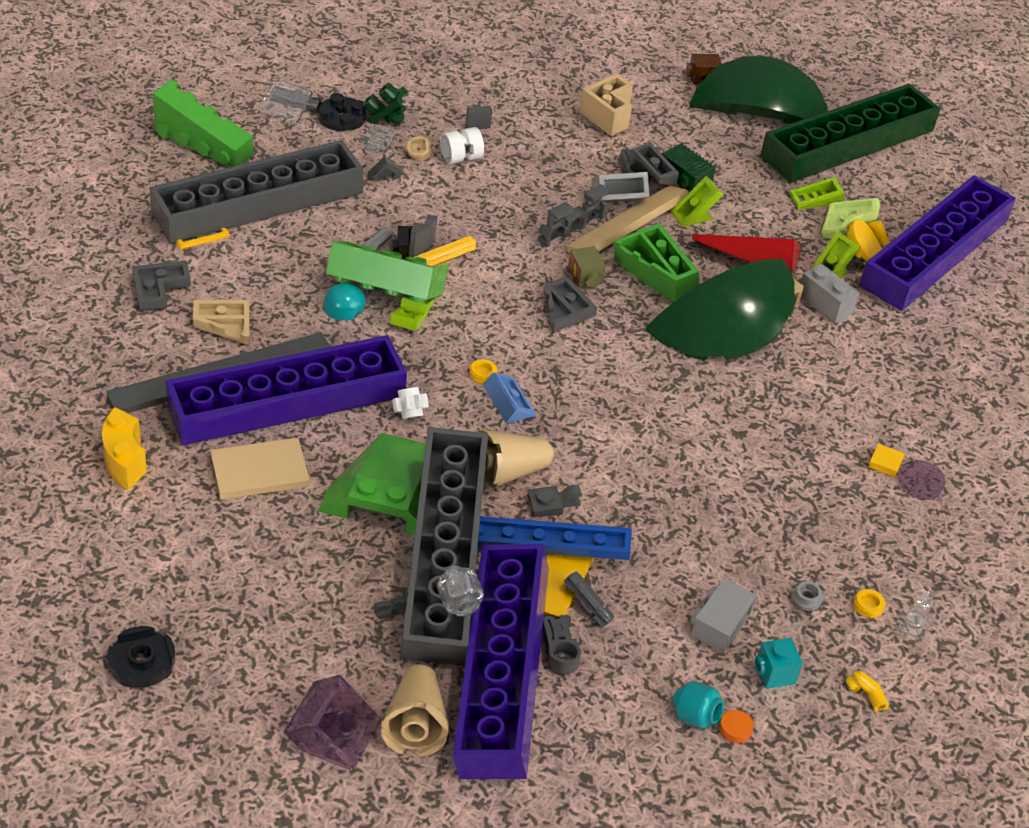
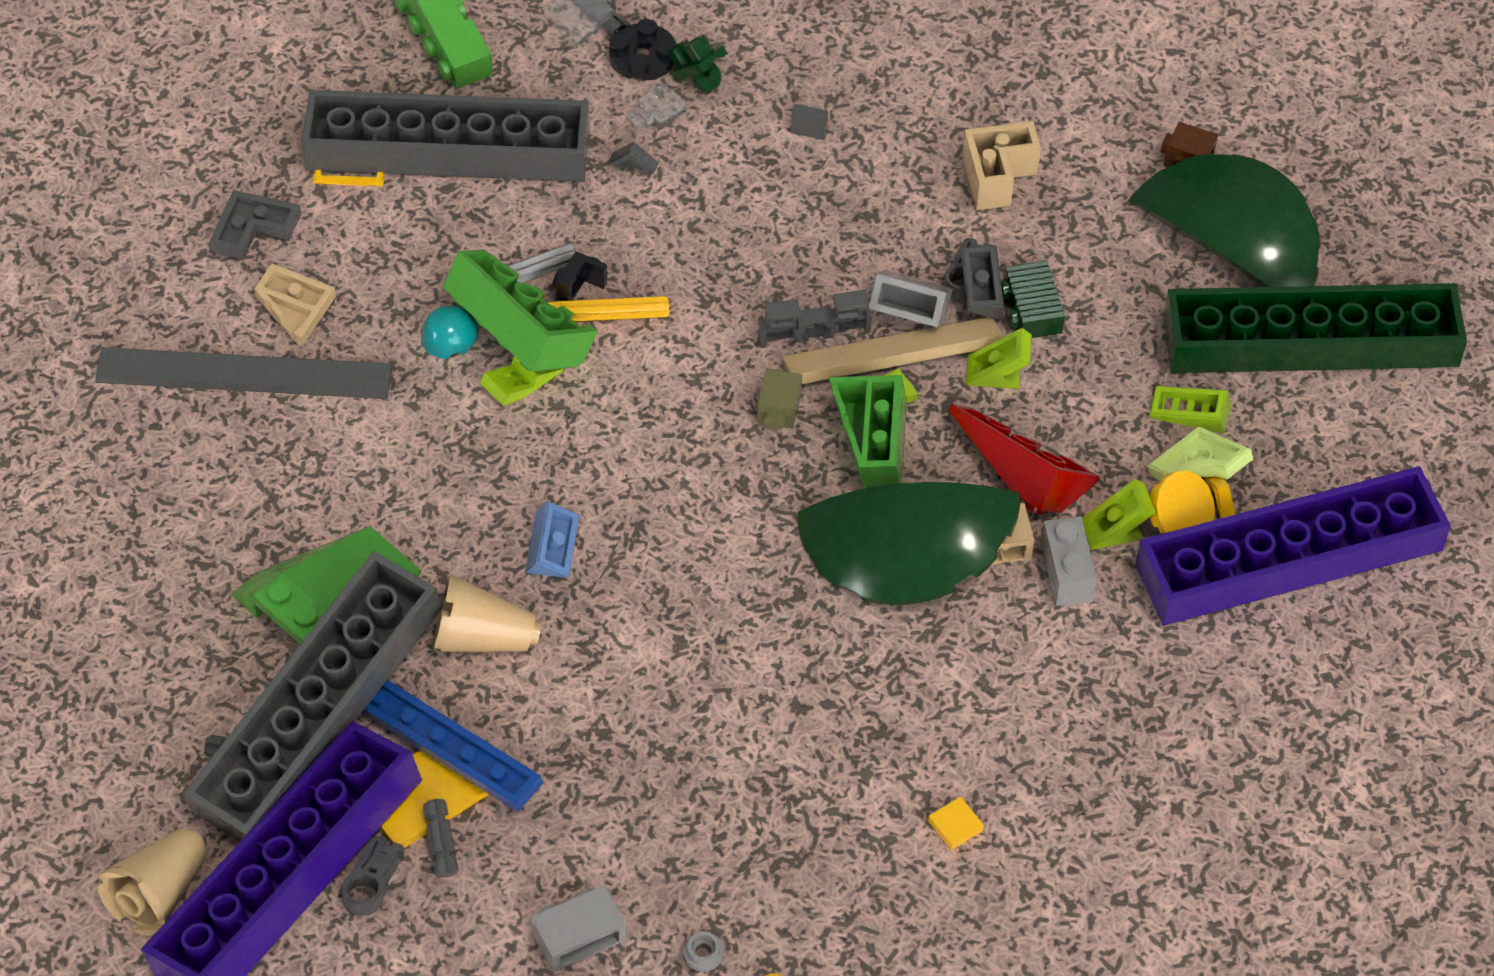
camera: 35 degrees right, 10 degrees up
(121, 448) = (64, 428): yellow brick -> none
(259, 468) = (203, 514): tan tile -> none
(284, 389) = (291, 427): dark purple brick -> none
(333, 723) = (63, 854): clear purple slope -> none
(410, 403) = (421, 502): white gear -> none
(418, 148) = (700, 141): tan tile -> none
(422, 236) = (600, 278): dark grey slope -> none
(460, 591) = (266, 767): clear head -> none
(462, 145) = (753, 157): white wheel -> none
(481, 370) = (546, 489): yellow tile -> none
(550, 502) = (496, 694): dark grey plate -> none
(566, 304) = (716, 441): dark grey wing -> none
(923, 490) = (975, 884): piece -> none

